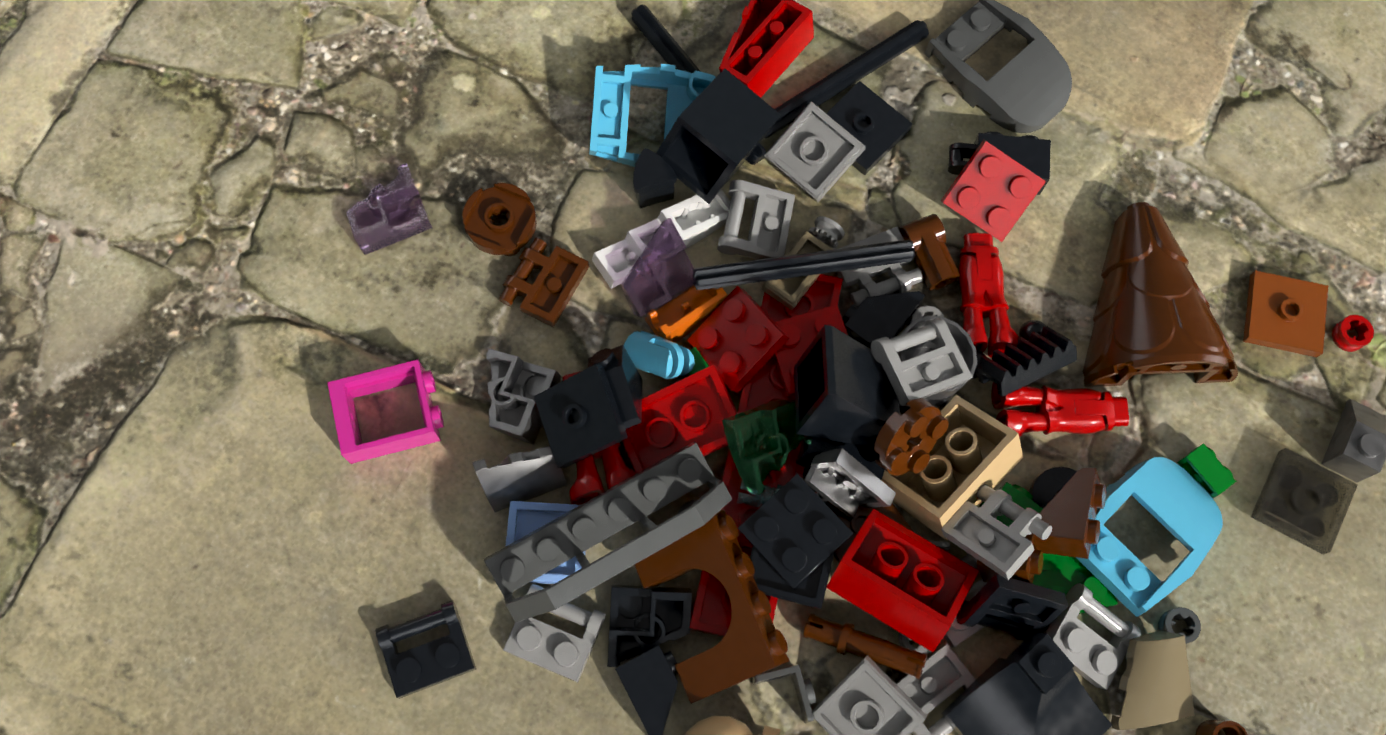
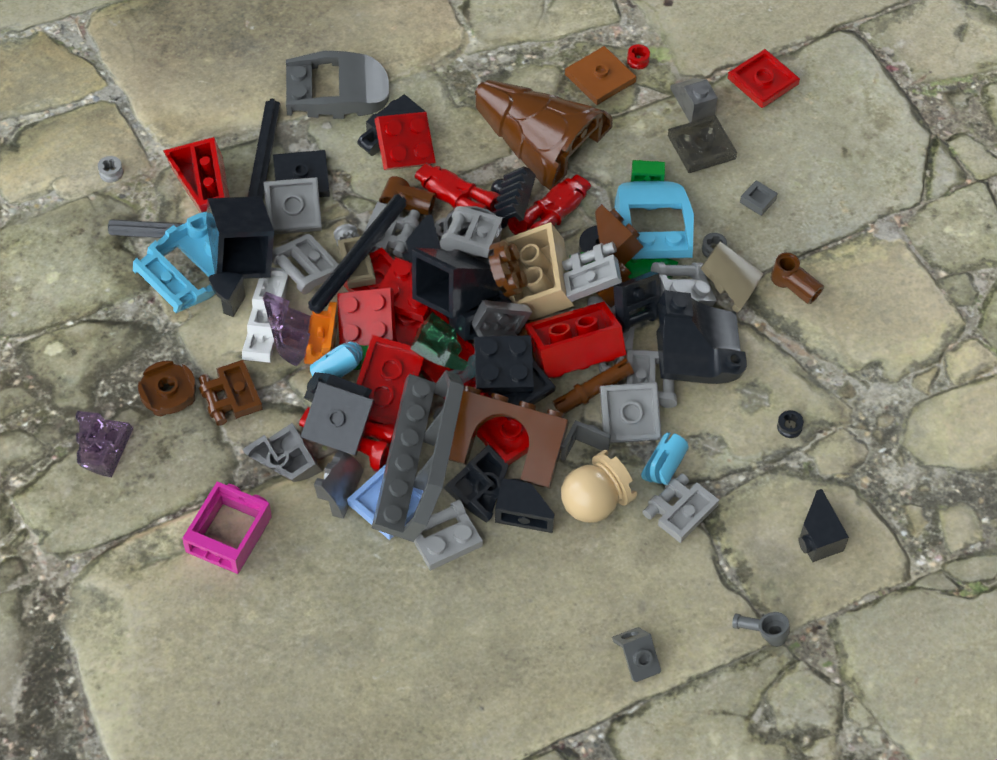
camera: 50 degrees left, 15 degrees down
(431, 661) = (399, 612): black plate -> none
(1293, 625) = (758, 198): none -> dark grey plate

